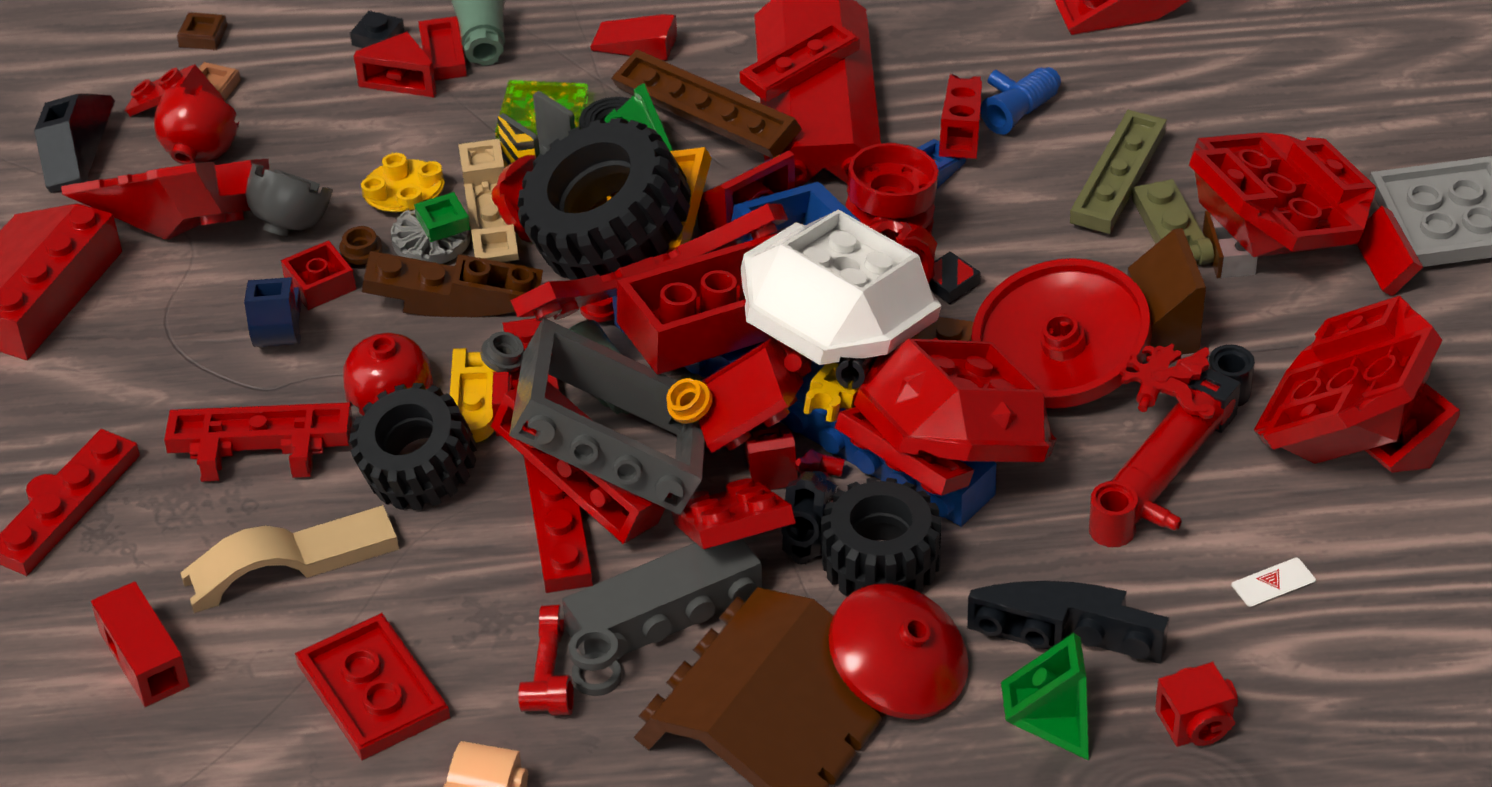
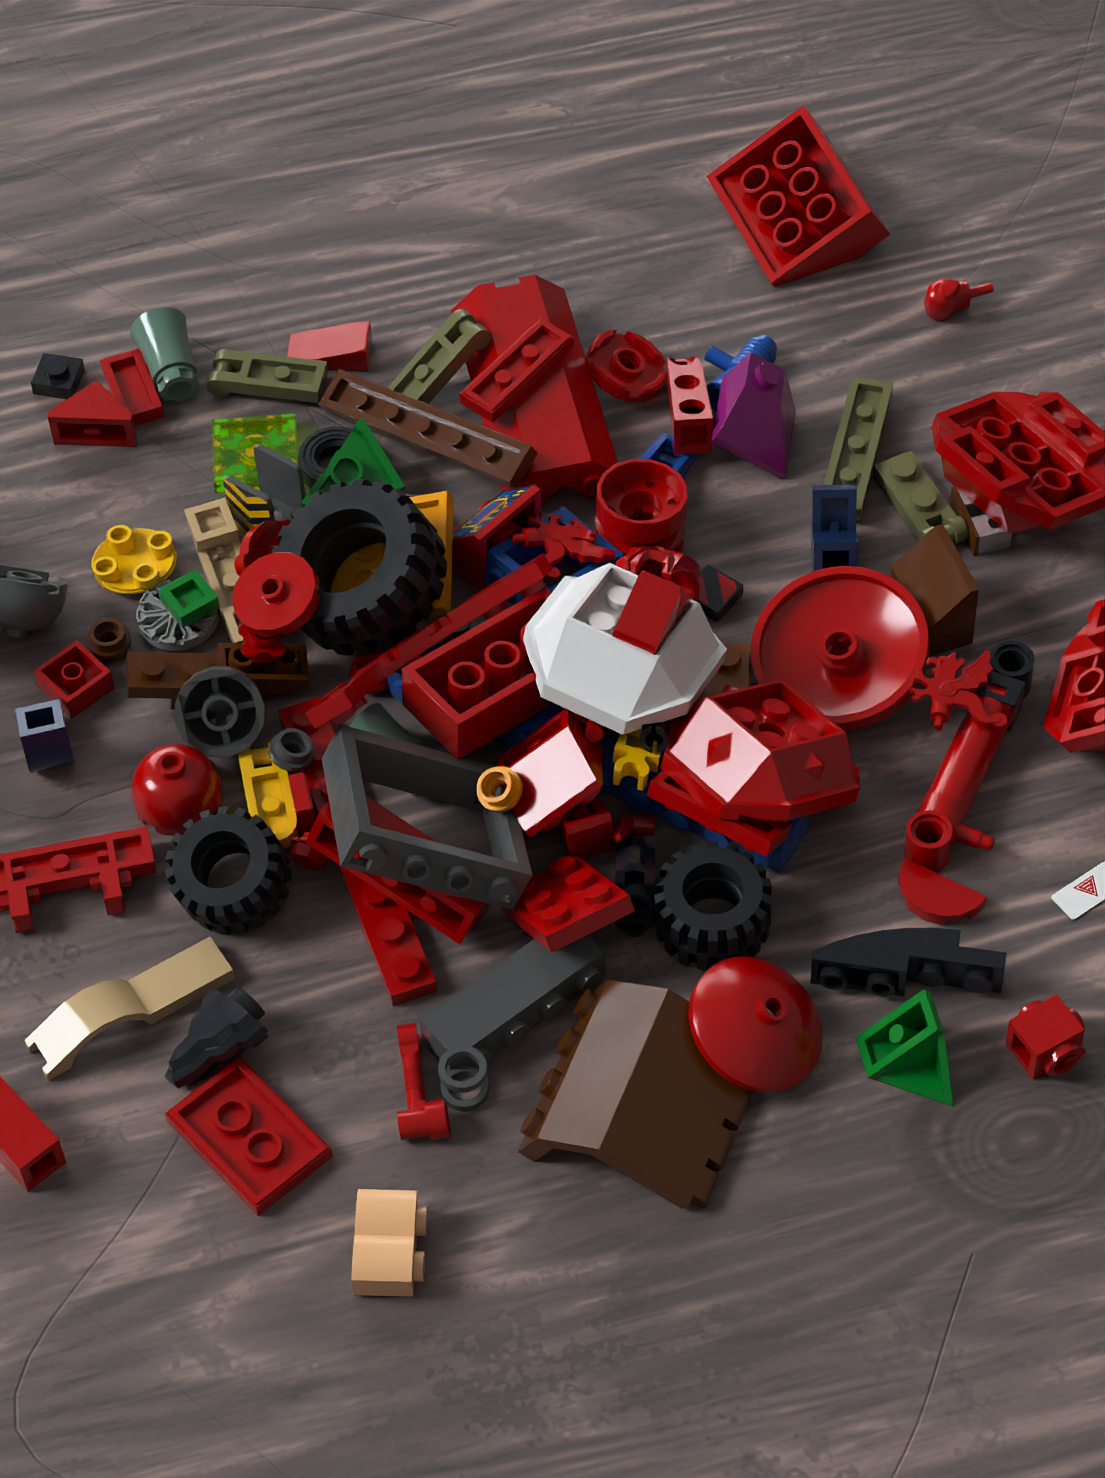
camera: 10 degrees left, 10 degrees up
(362, 591) = (216, 1035): none -> black rock
(441, 308) = (220, 711): none -> dark grey cylinder
(497, 254) = (260, 650): none -> red plate
(497, 448) = (306, 855): none -> red plate
(517, 209) = (285, 608): none -> red plate
(570, 51) = (267, 376): none -> olive plate
(736, 45) = (441, 357): none -> olive plate
(801, 202) = (558, 540): none -> red piece
(866, 247) = (651, 611): none -> red slope
(910, 78) = (626, 366): none -> red plate
(1026, 127) = (756, 414): none -> magenta slope
(1079, 224) = (834, 526): none -> dark blue brick
(1112, 565) = (935, 896): none -> red tile
(1239, 57) = (951, 295): none -> red piece

